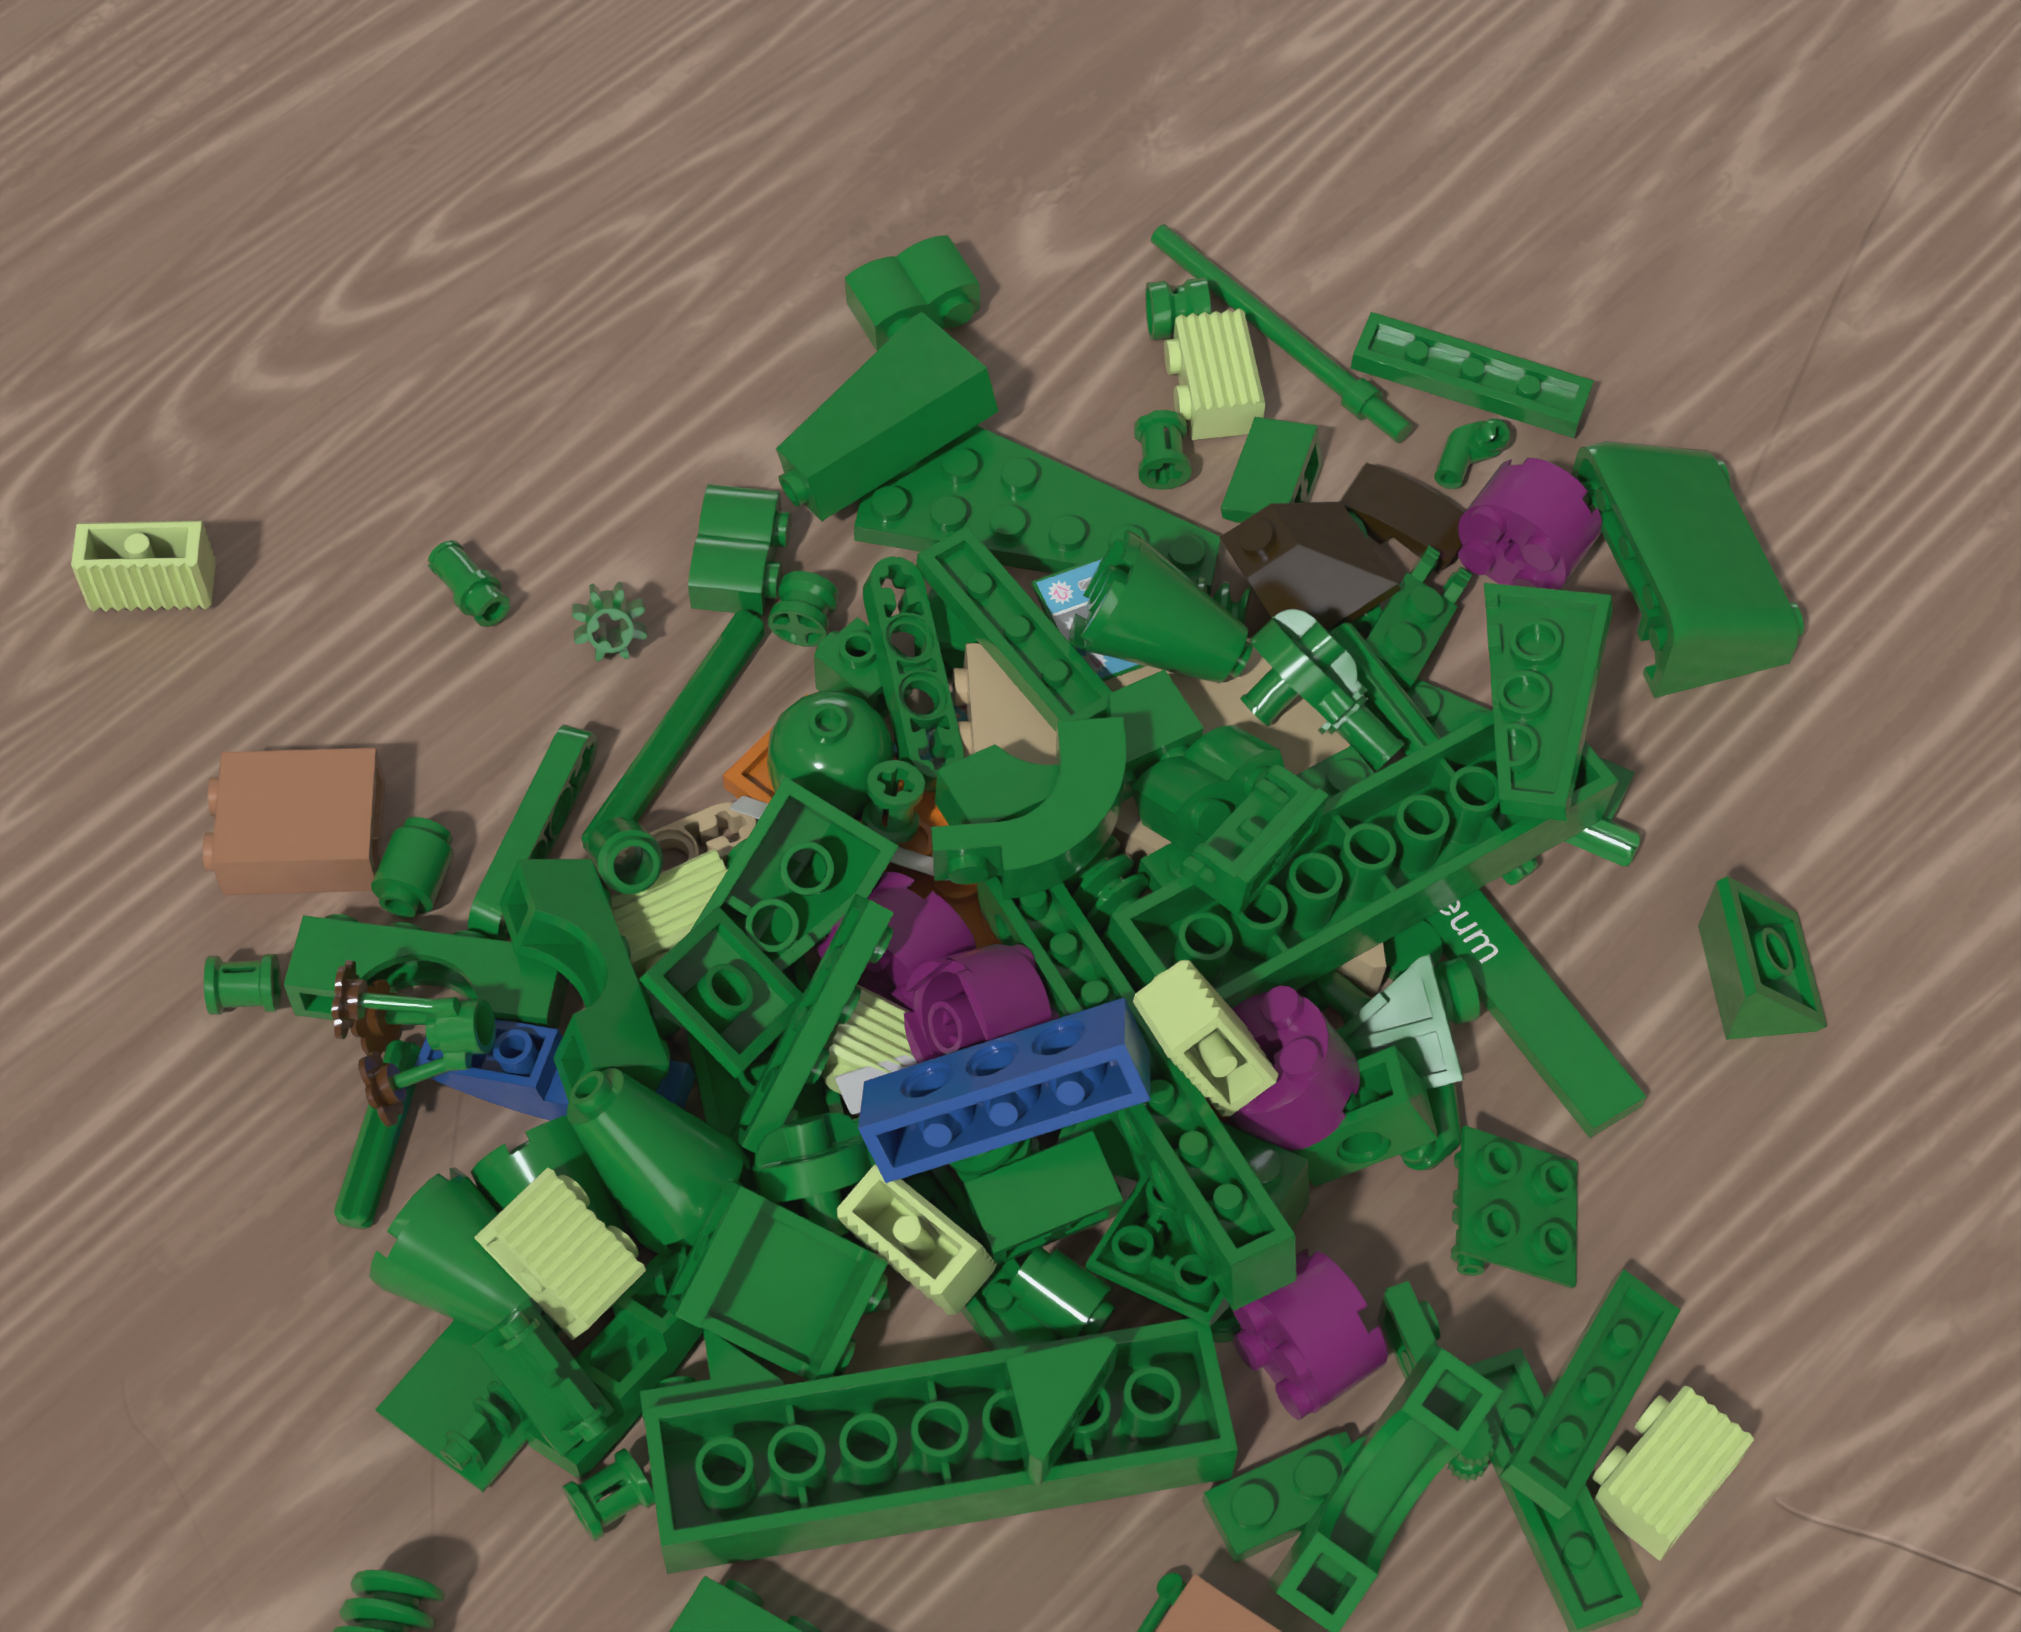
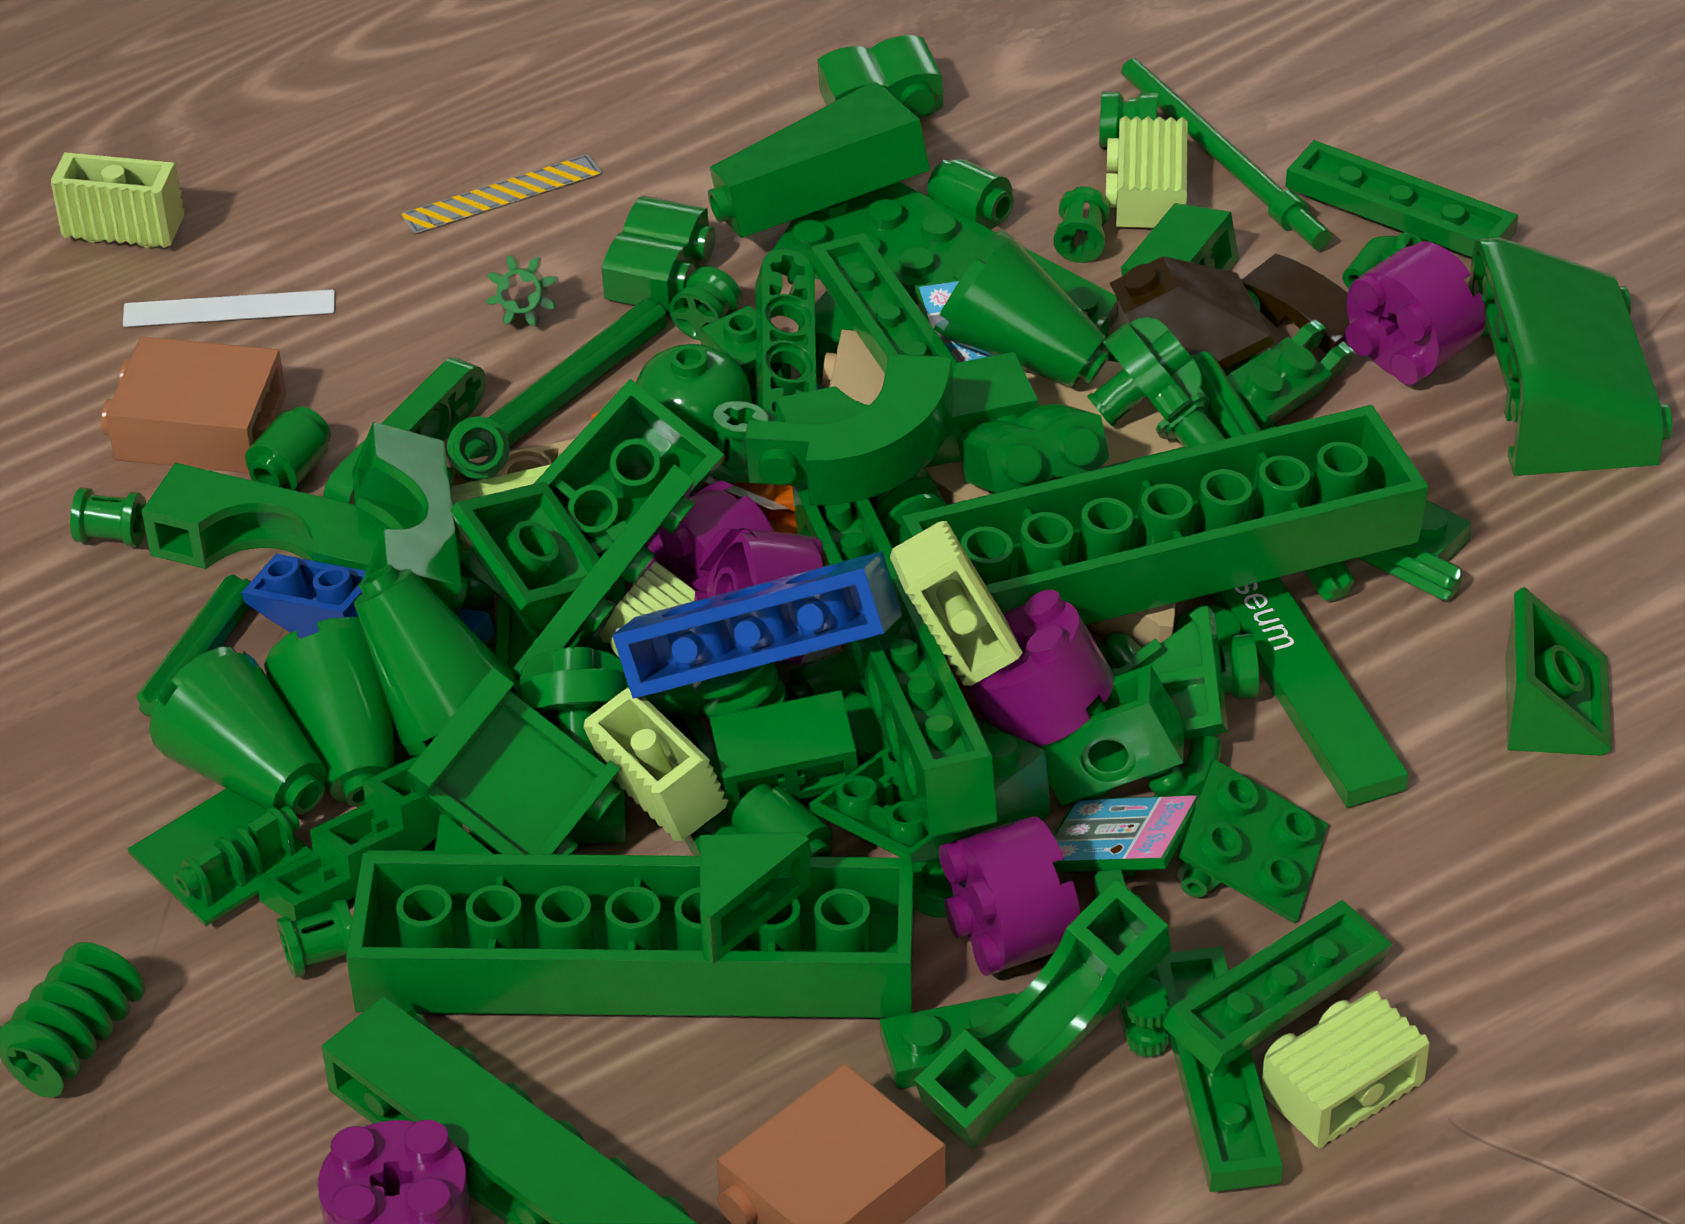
camera: 15 degrees right, 15 degrees down
(293, 676) = (228, 308): none -> white sticker
(376, 1017) = (278, 548): plant -> none
(474, 590) = (407, 255): green pin -> none
(544, 1379) = (281, 824): green hinge -> none
(546, 483) = (501, 193): none -> sticker
(562, 1252) = (322, 717): yellowish green brick -> none
(1041, 424) = (972, 191): none -> green brick
(1256, 840) = (1056, 477): green hinge -> none
(1393, 1225) = (1123, 833): none -> piece
(1543, 687) = (1369, 397): green wing -> none

